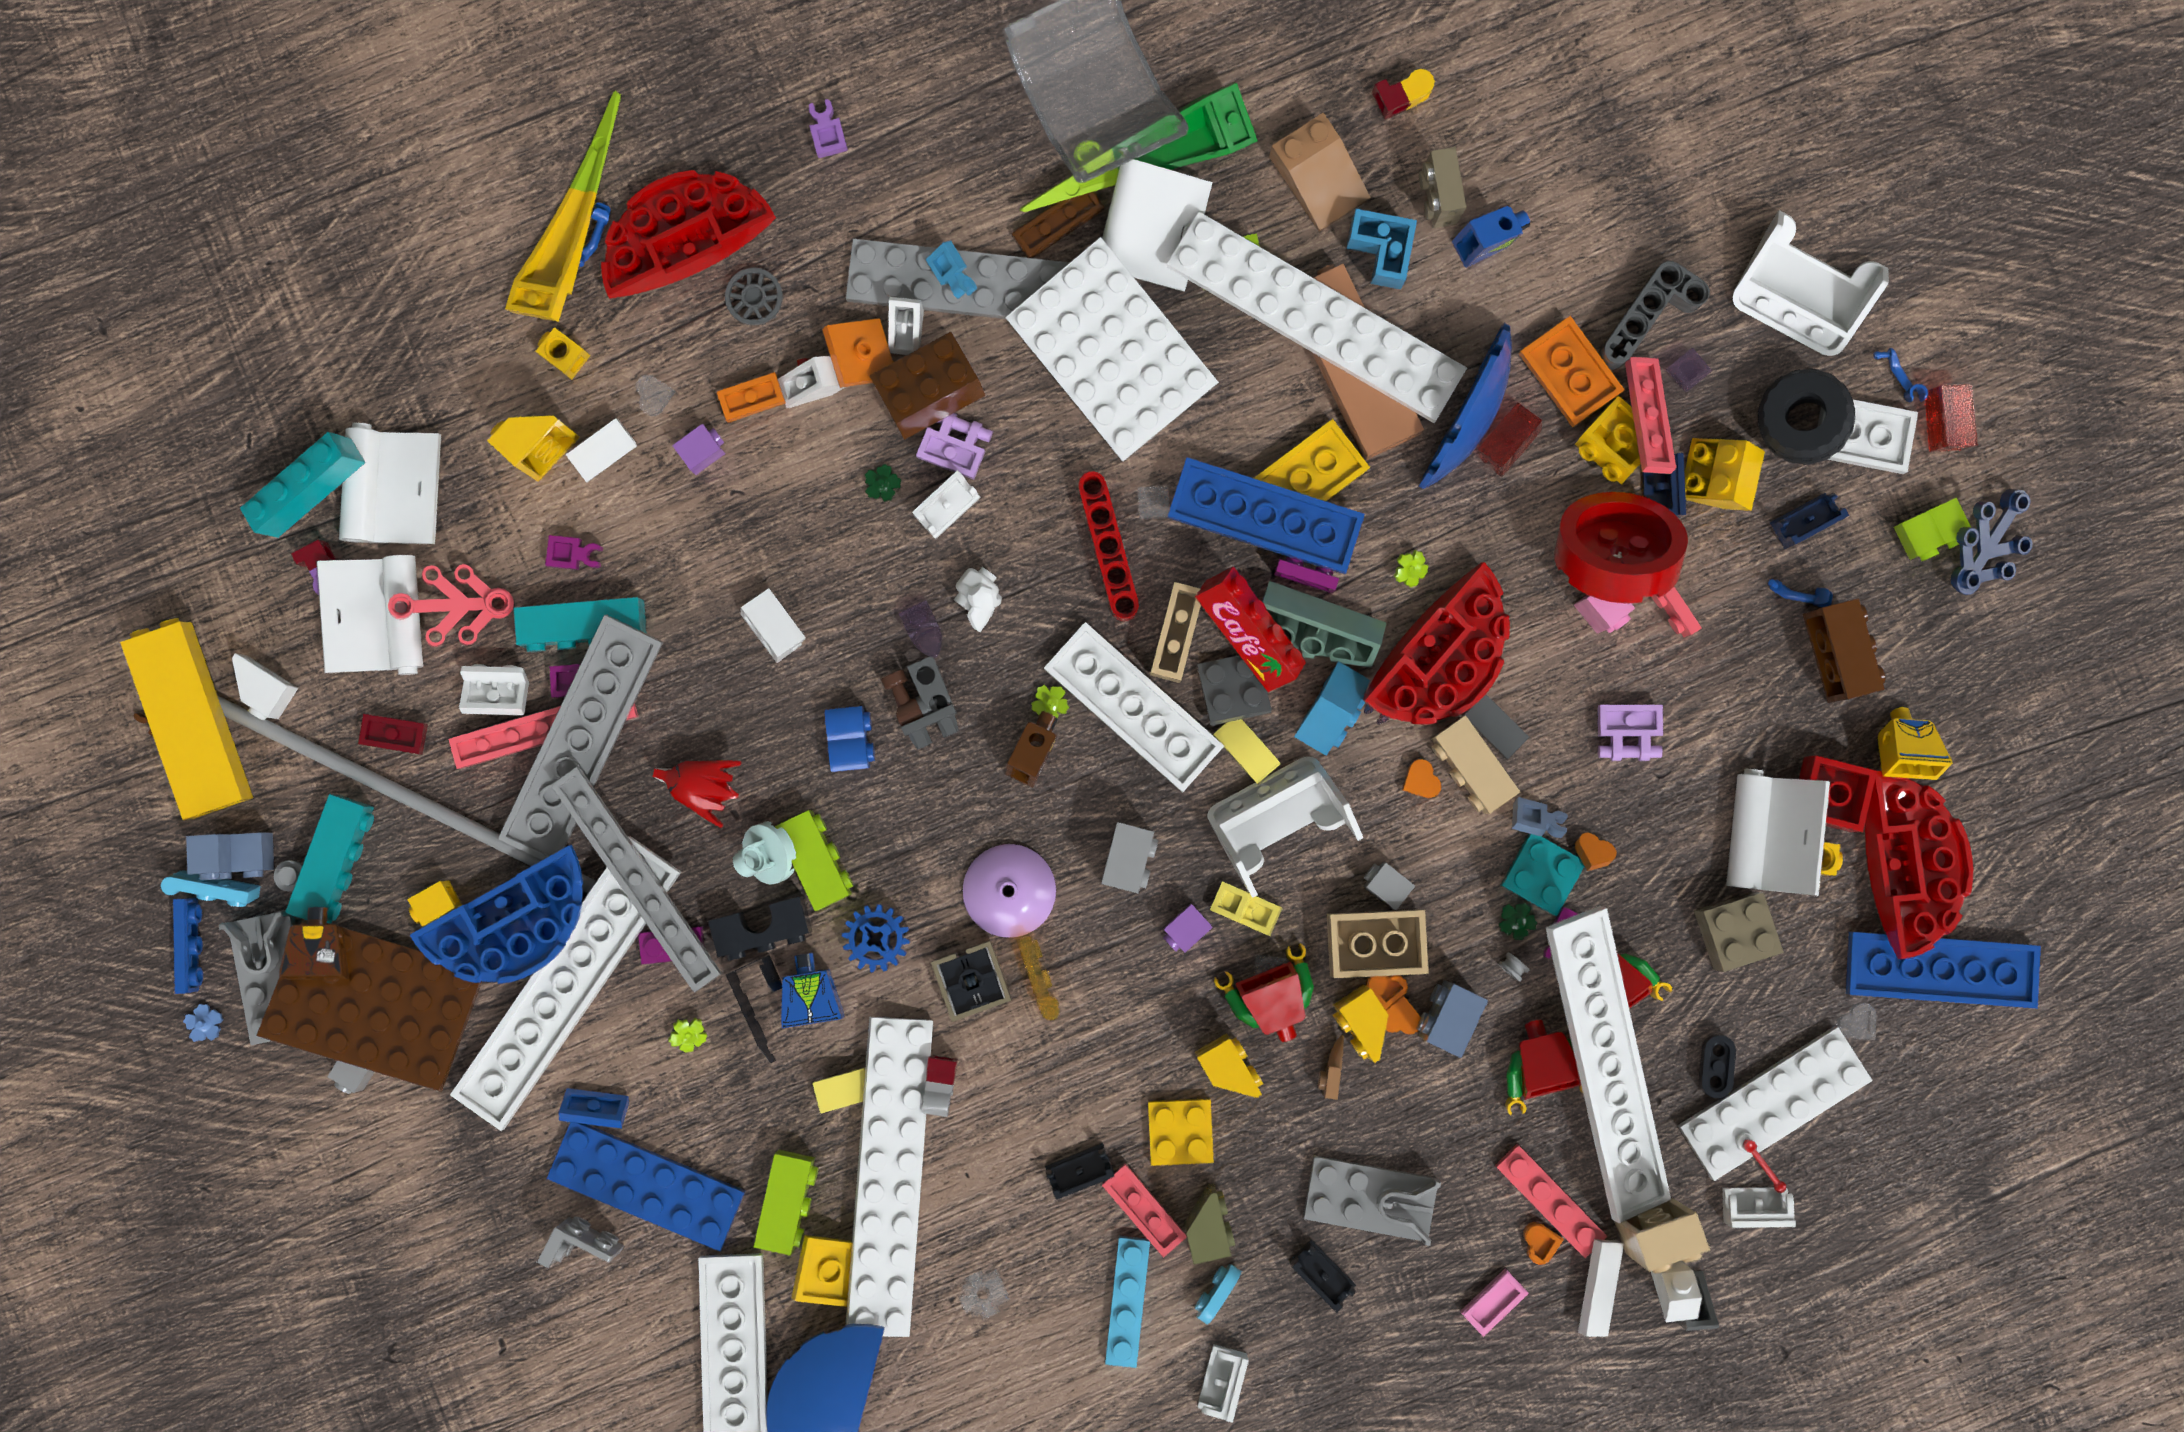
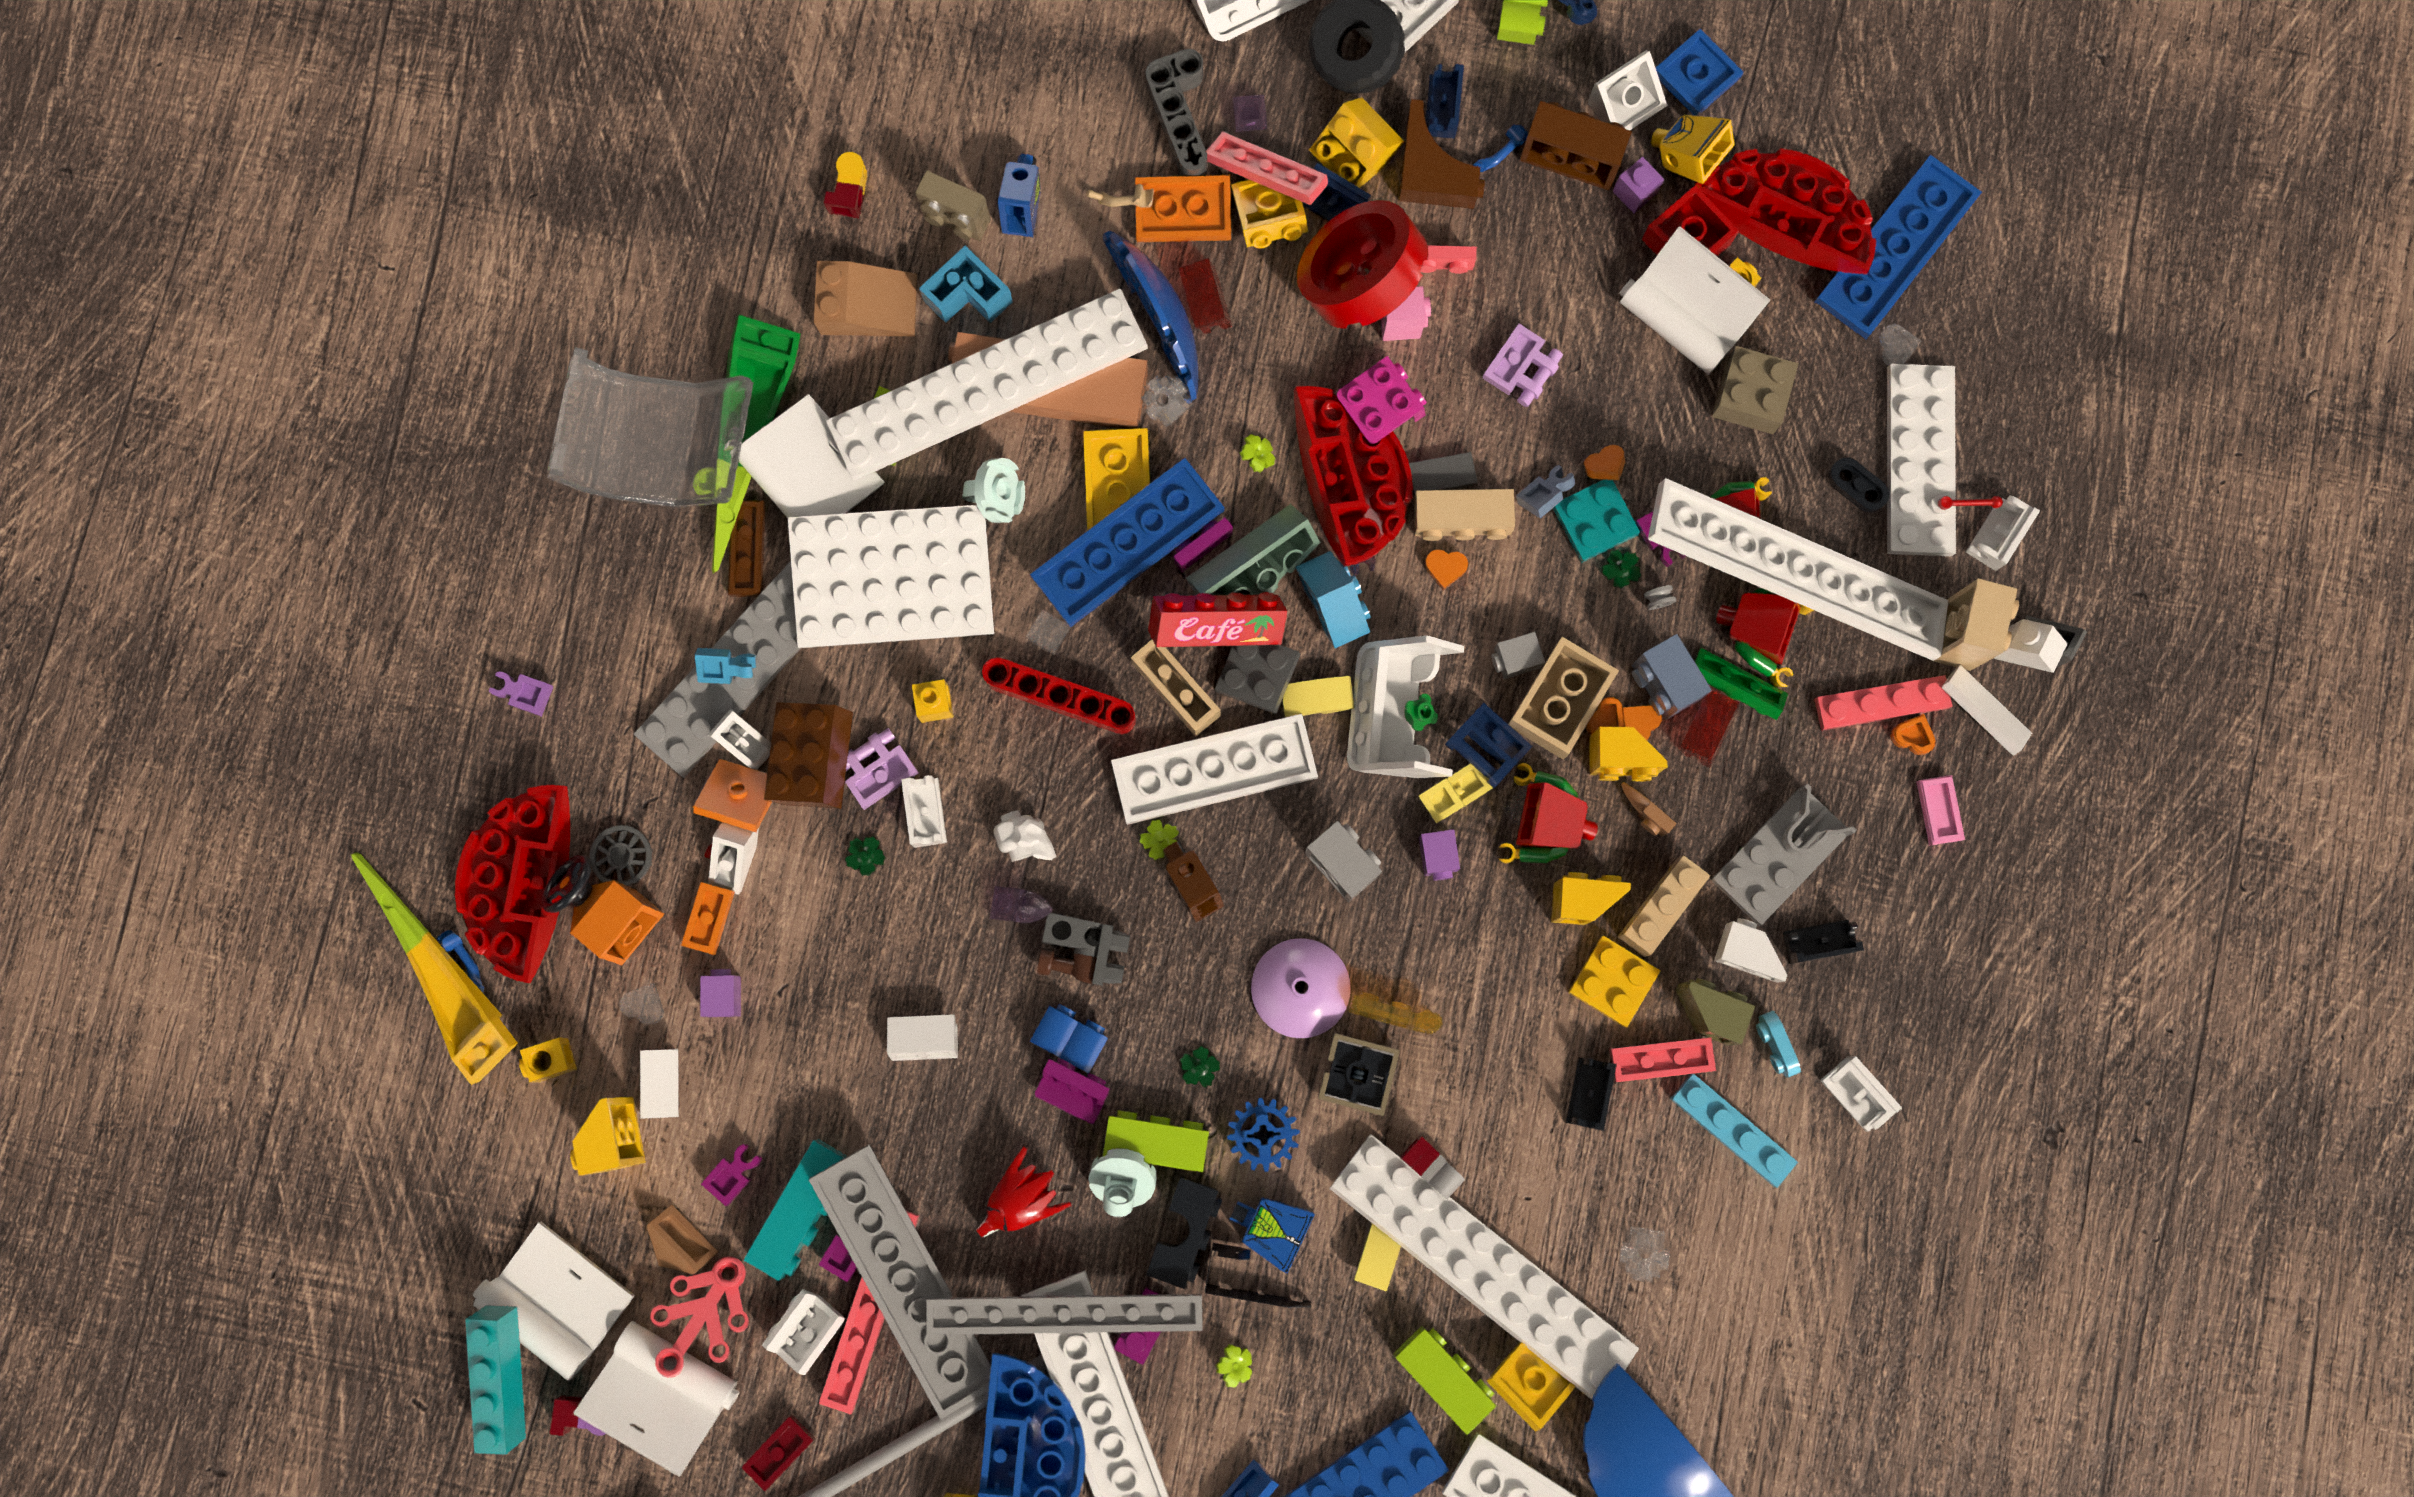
camera: 55 degrees left, 5 degrees down
(495, 549) = (678, 1242): none -> medium nougat slope
(698, 321) = (606, 915): none -> orange piece
(808, 768) = (1072, 1091): none -> magenta bracket
(895, 854) = (1200, 1067): none -> dark green plant
(1036, 451) = (932, 701): none -> yellow brick
(1236, 384) = (996, 490): none -> light aqua tile
(1265, 1132) = (1664, 906): none -> tan brick
(1276, 1222) = (1749, 951): none -> white slope
(1285, 832) = (1413, 712): none -> green plate
(1309, 910) = (1495, 738): none -> dark blue plate
(1393, 470) = (1177, 403): none -> clear brick
(1434, 1075) = (1710, 727): none -> clear red hinge
(1486, 1076) = (1740, 684): none -> green plate
(1521, 637) = (1381, 400): none -> dark pink bracket
(1555, 332) = (1141, 198): none -> tan piece
(1740, 549) = (1431, 173): none -> reddish brown arch
(1847, 724) = (1638, 185): none -> medium lavender brick
(1919, 666) = (1629, 93): none -> white slope
(1978, 709) = (1698, 73): none -> blue plate

